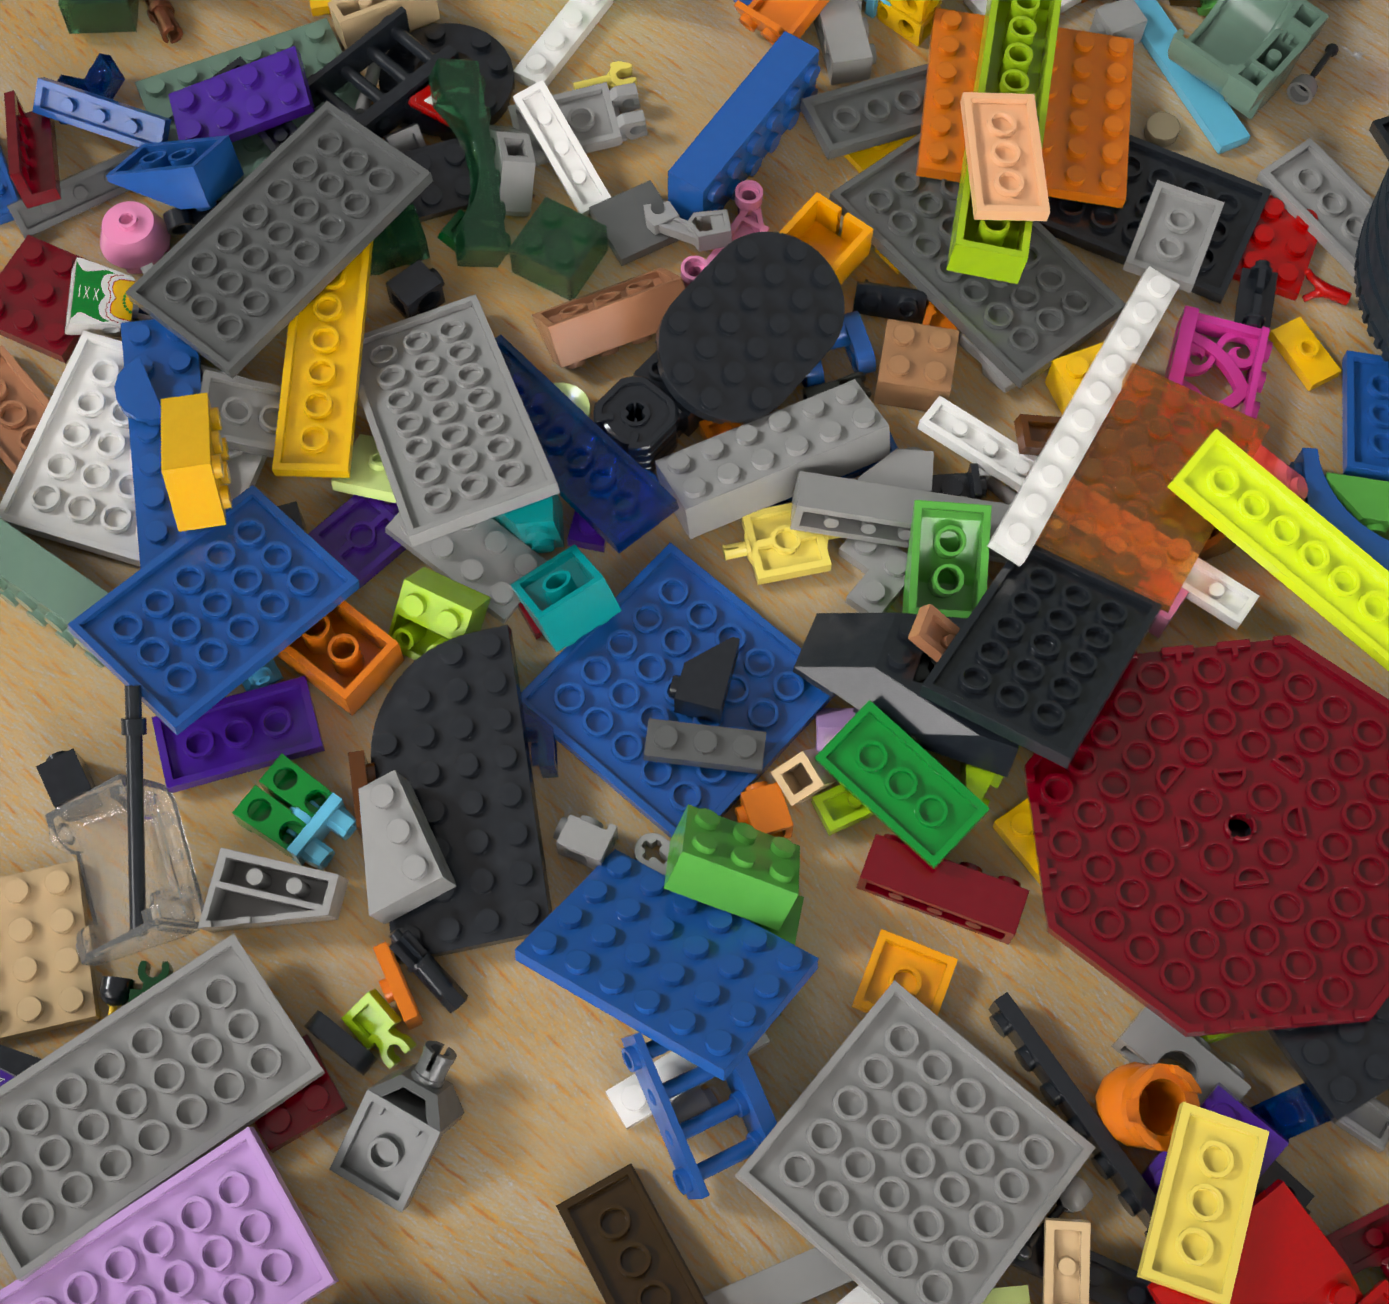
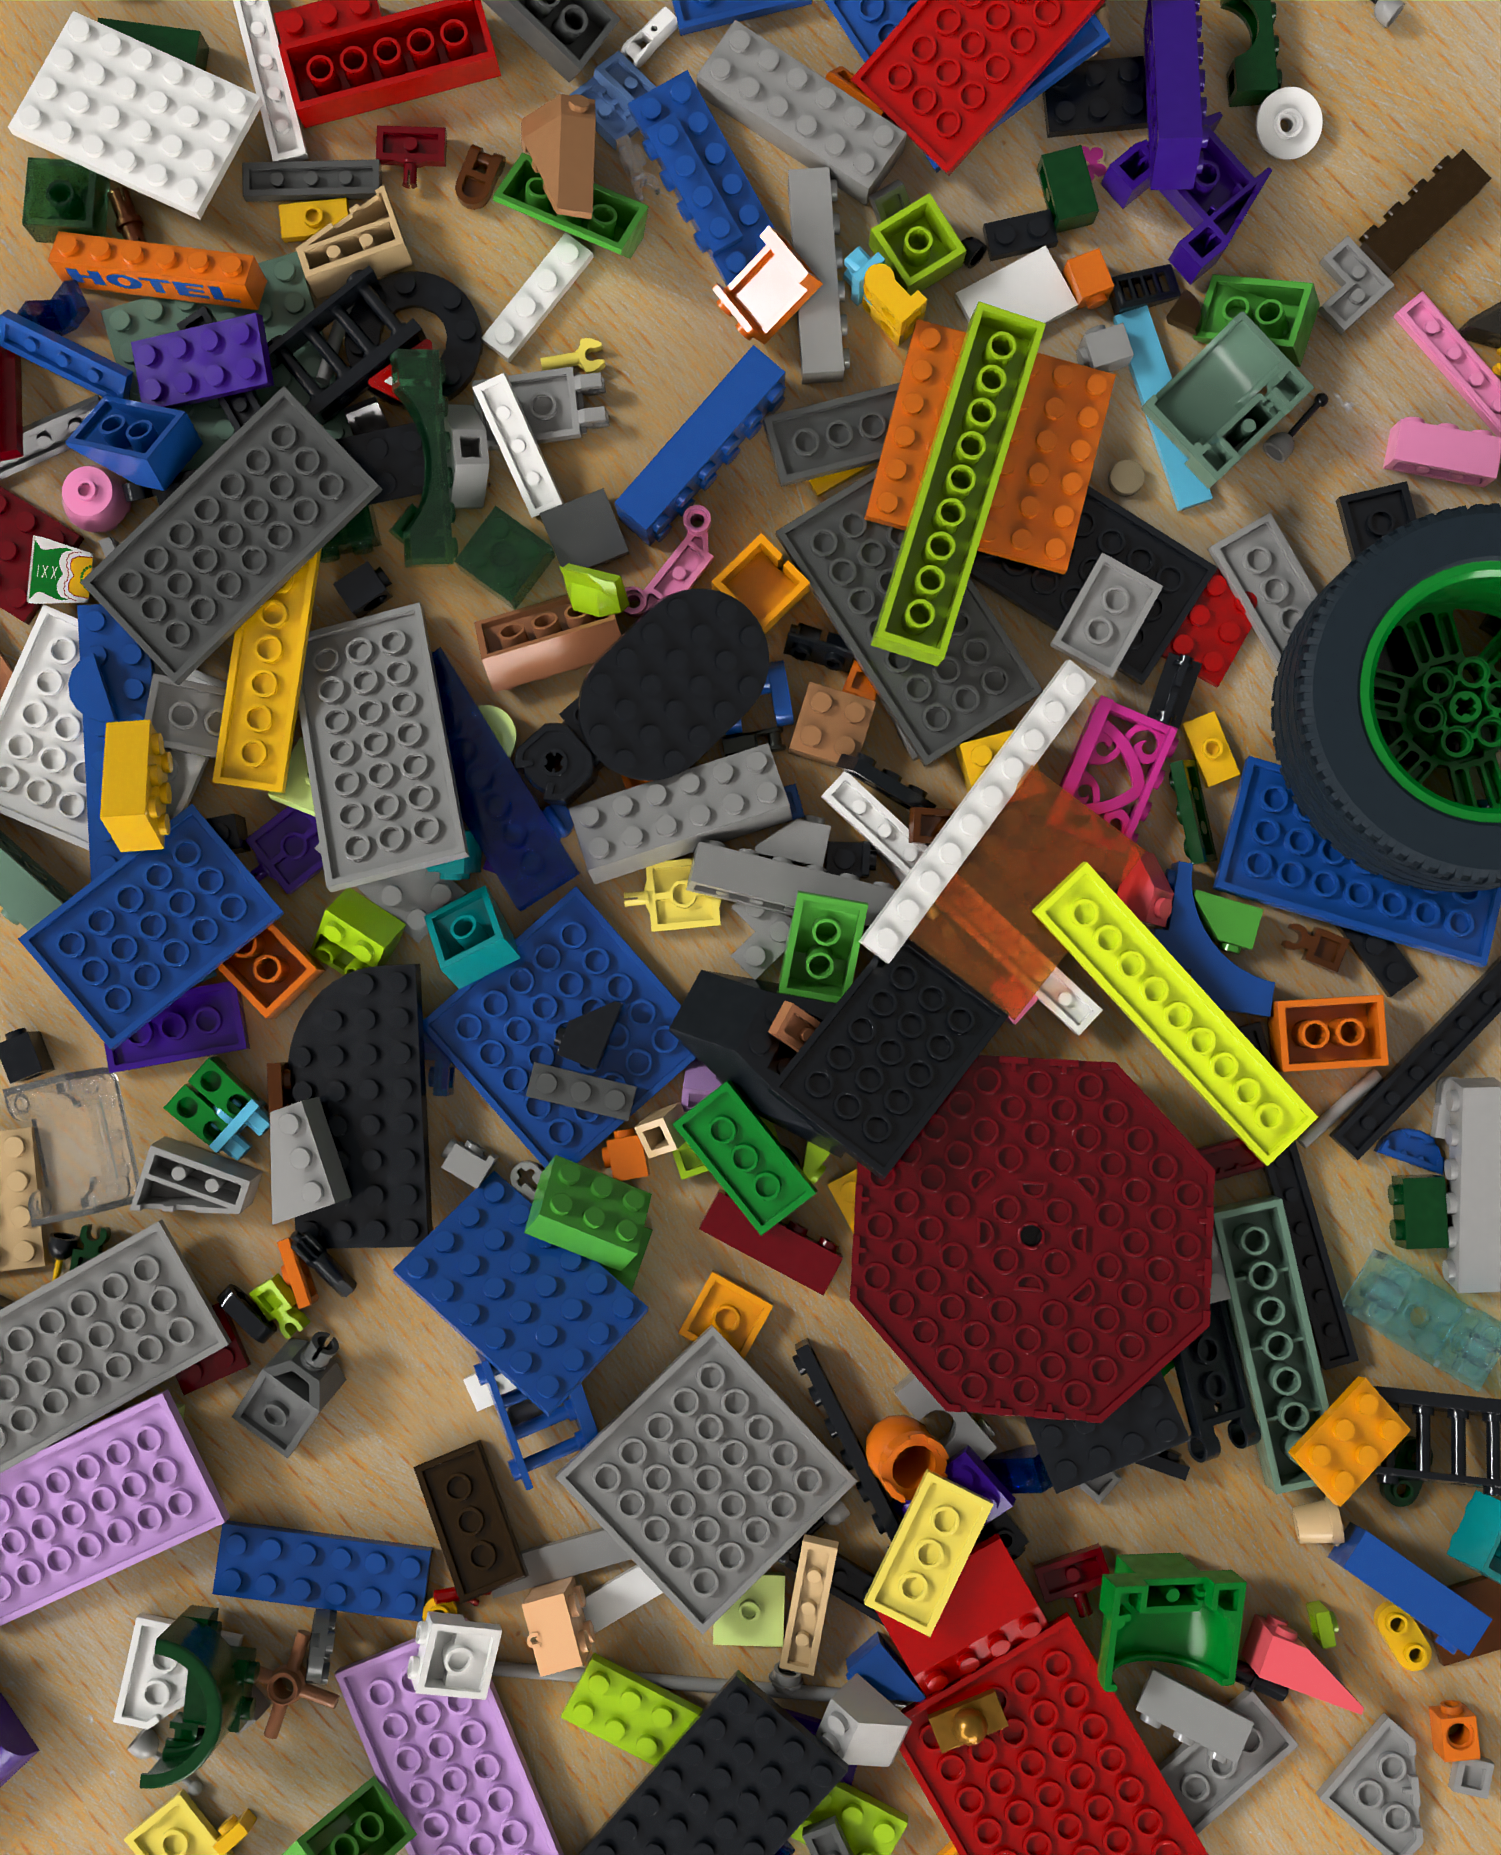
camera: 10 degrees right, 20 degrees up
(134, 728) = (75, 1043): black bar -> none
(192, 34) = (158, 270): none -> orange brick
(653, 257) = (594, 591): none -> lime slope
(703, 229) = (617, 547): light grey piece -> none
(978, 400) = (884, 781): none -> black plate
(1004, 157) = (940, 543): light nougat plate -> none
(1301, 407) = (1192, 812): none -> dark green plate
(1325, 290) = (1245, 681): red bar -> none

